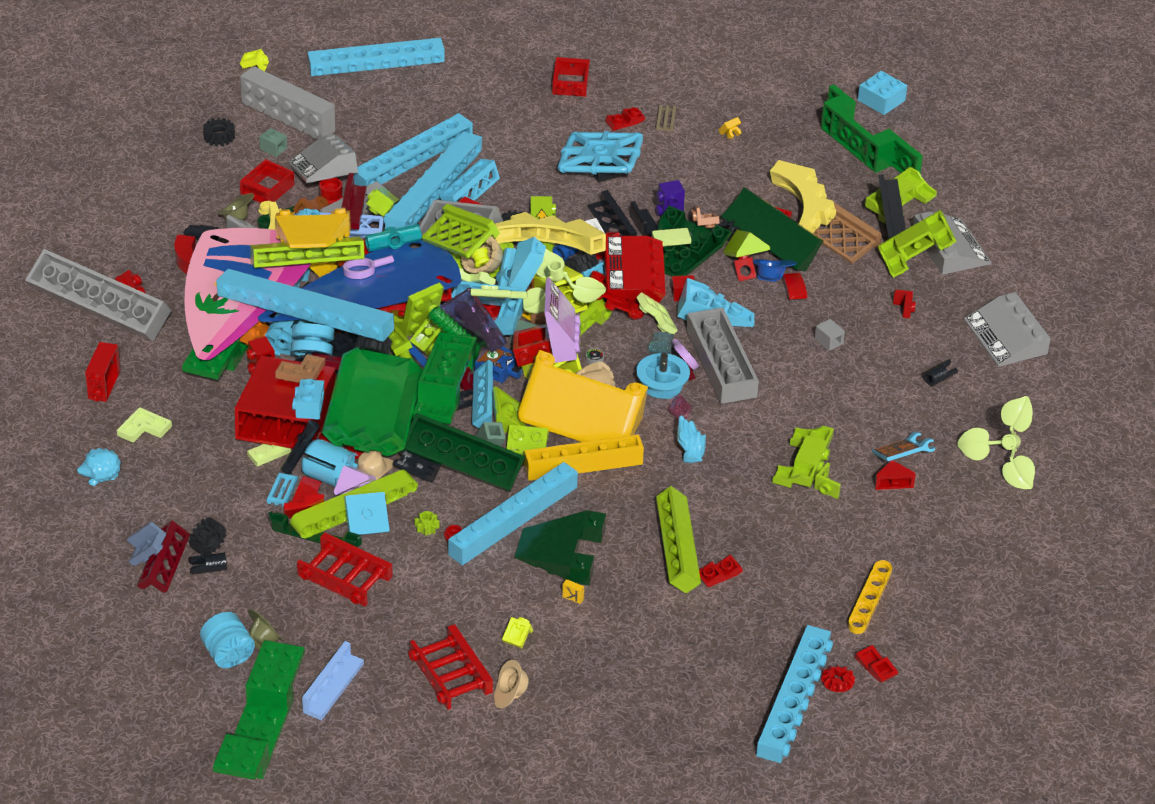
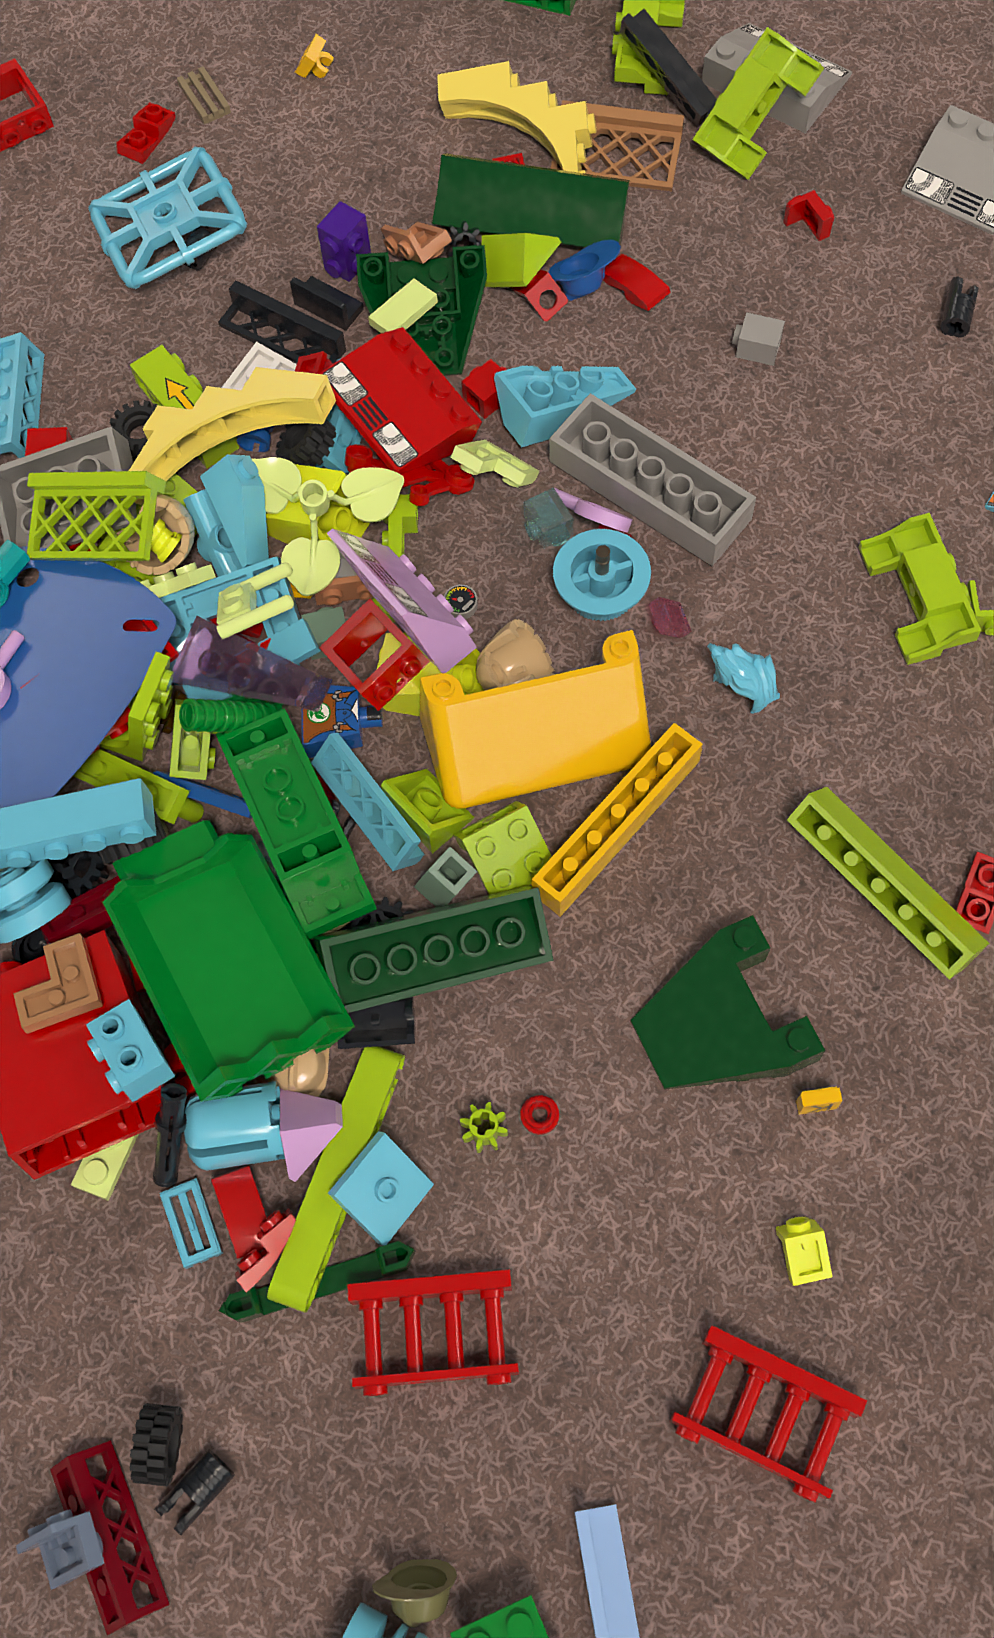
camera: 30 degrees left, 25 degrees up
(511, 684) = (891, 1382): tan piece -> none
(512, 513) = (600, 1012): medium azure brick -> none

